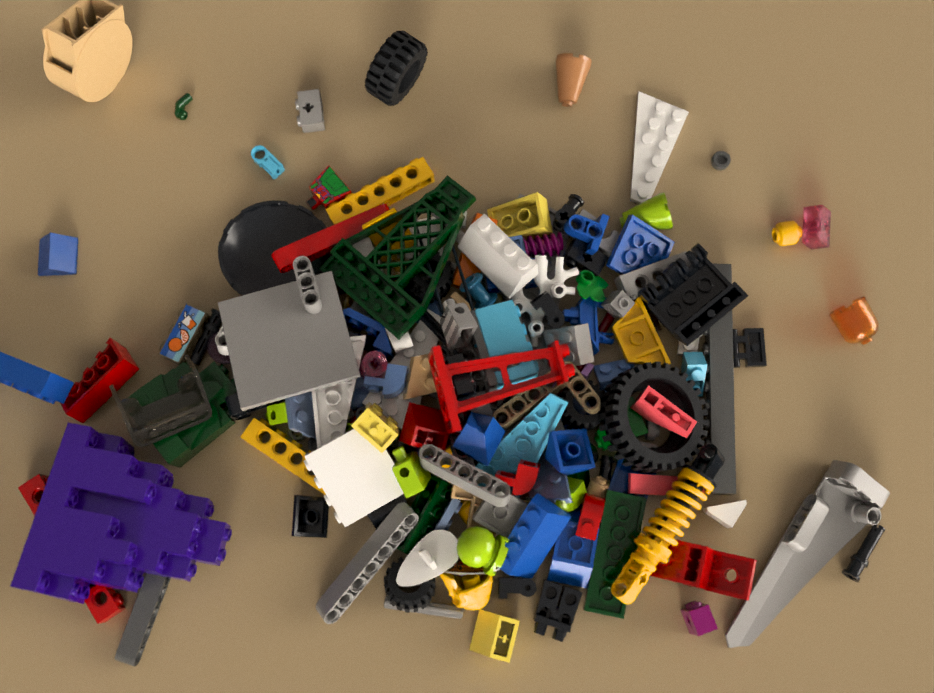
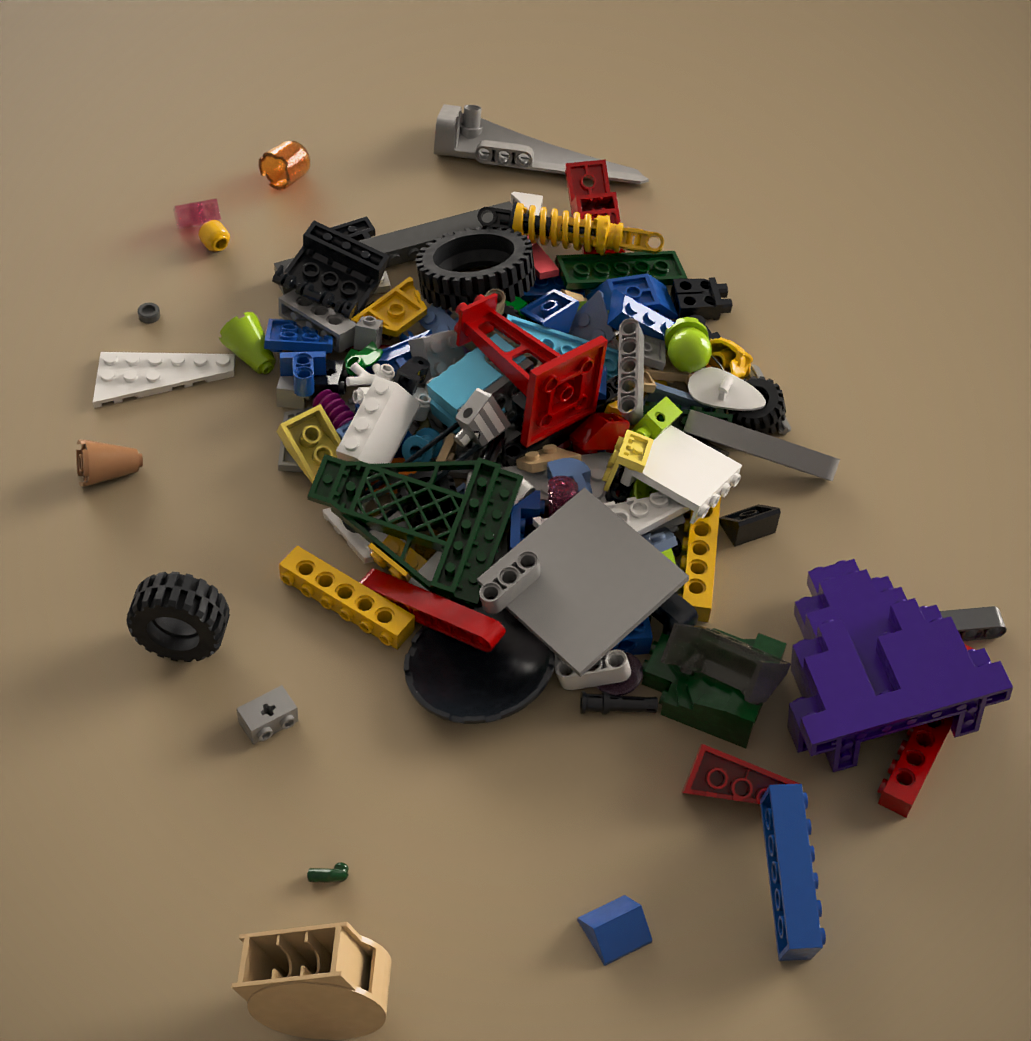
camera: 120 degrees left, 25 degrees down
(184, 334) = (630, 725): brick -> none
(268, 162) = (360, 737): medium azure piece -> none
(327, 189) = (367, 652): torso -> none
(494, 635) = (756, 330): light yellow slope -> none
(524, 478) = (594, 329): red brick -> none
(568, 210) = (284, 407): black connector -> none
(590, 516) = (599, 279): red brick -> none
(662, 412) = (468, 252): coral slope -> none
(695, 366) = (402, 265): medium azure slope -> none
(698, 618) = (640, 196): magenta brick -> none
(860, 559) = (514, 116): black pin -> none

